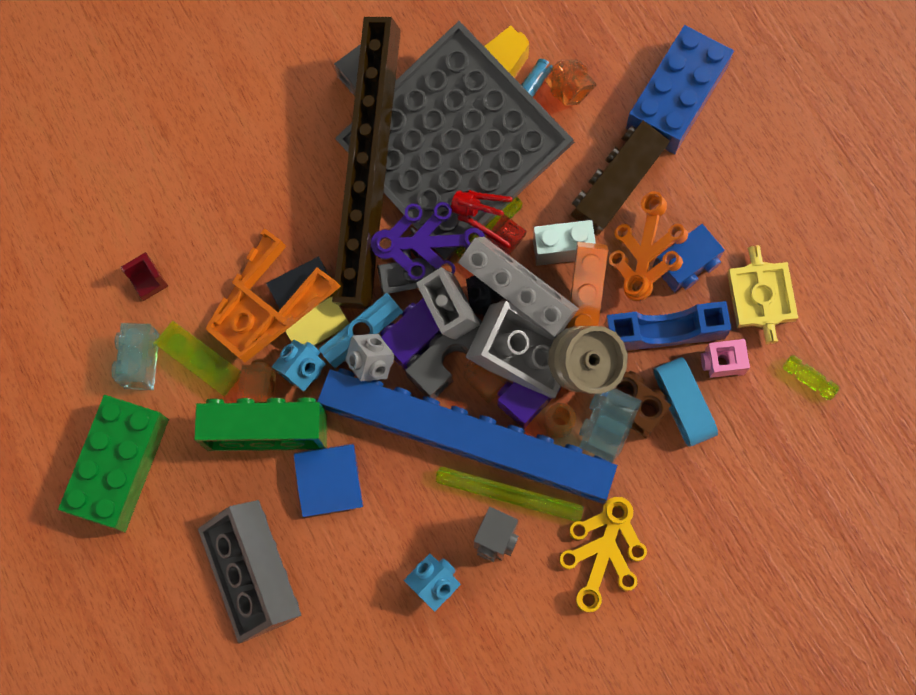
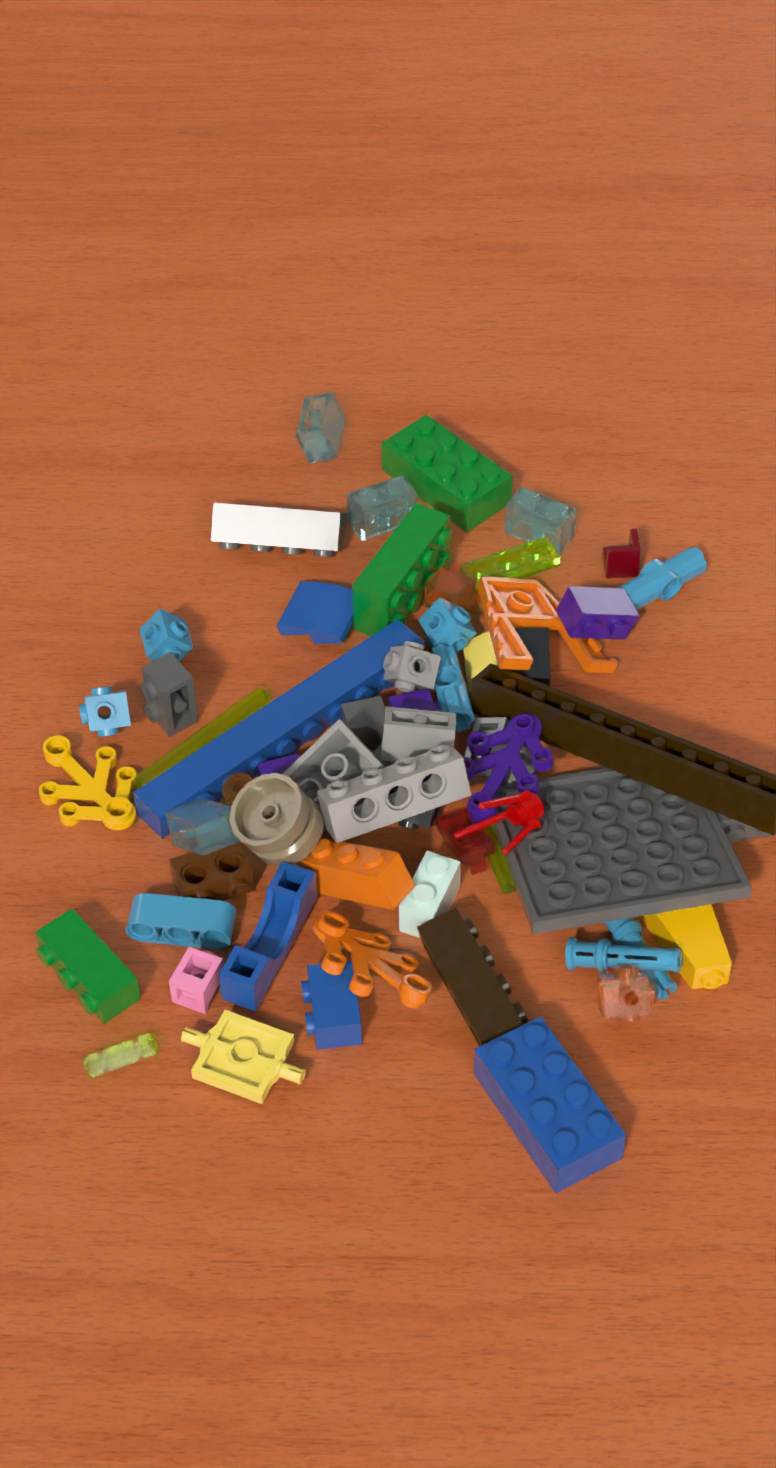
camera: 115 degrees right, 25 degrees down
(110, 602) = (320, 427): none -> clear light blue brick
(157, 236) = (664, 578): none -> dark azure piece
(184, 493) = (380, 507): none -> clear light blue brick
(227, 257) = (597, 612): none -> dark purple brick
(534, 580) = (105, 697): none -> brick
(540, 83) = (603, 956): none -> dark azure pin
(764, 442) = (87, 966): none -> green brick

